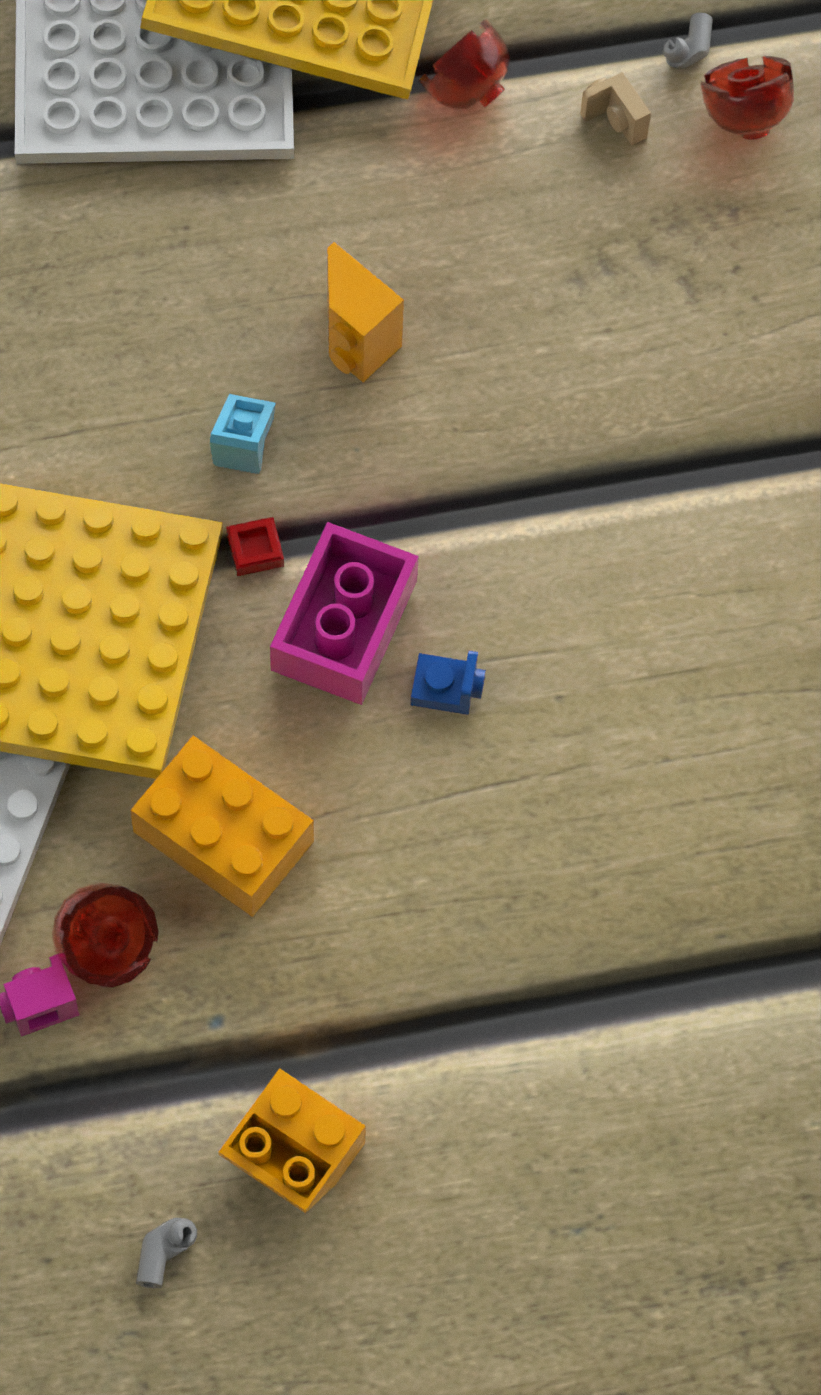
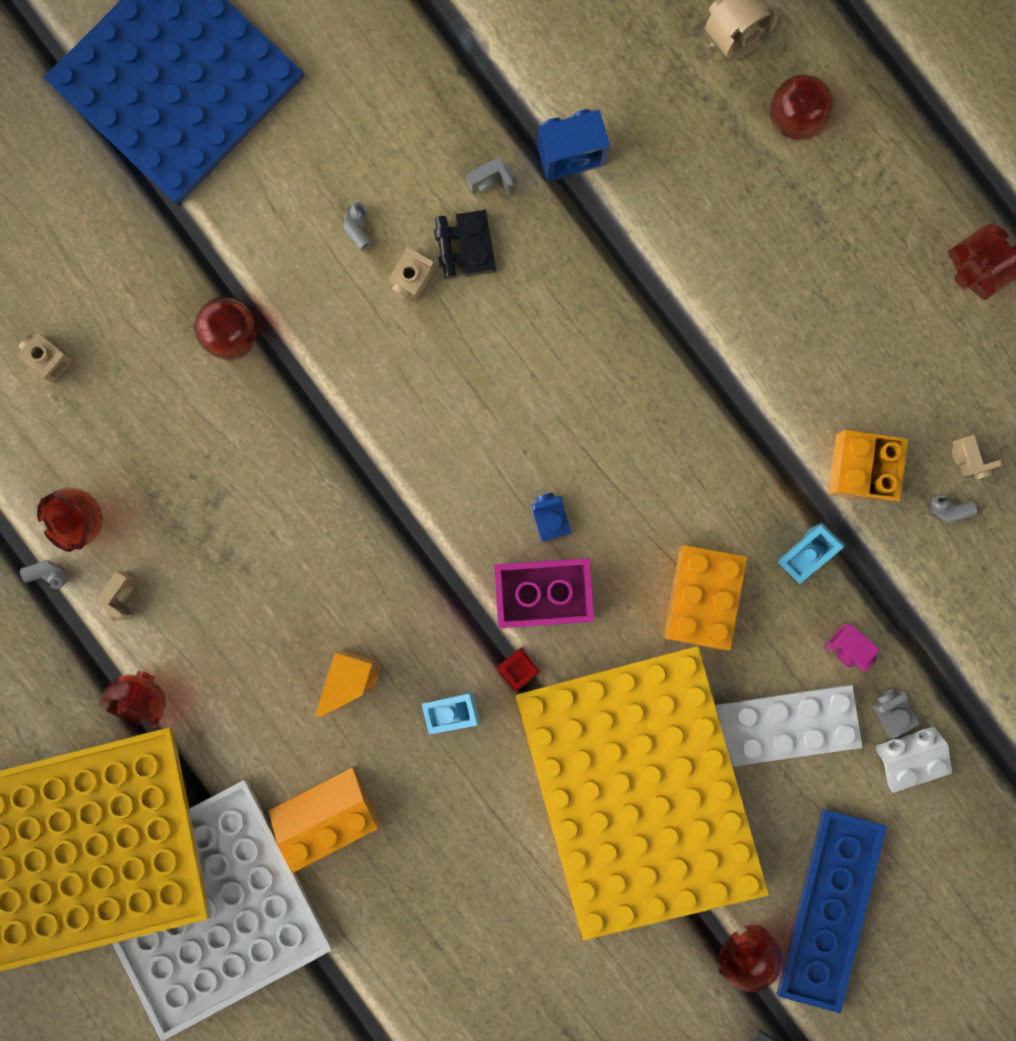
camera: 115 degrees left, 20 degrees up
(105, 934) = (806, 629): clear red cylinder -> none
(188, 219) = (323, 820): none -> light orange slope
(209, 1002) = (811, 552): none -> medium azure slope
(233, 1308) = (968, 457): none -> tan bracket

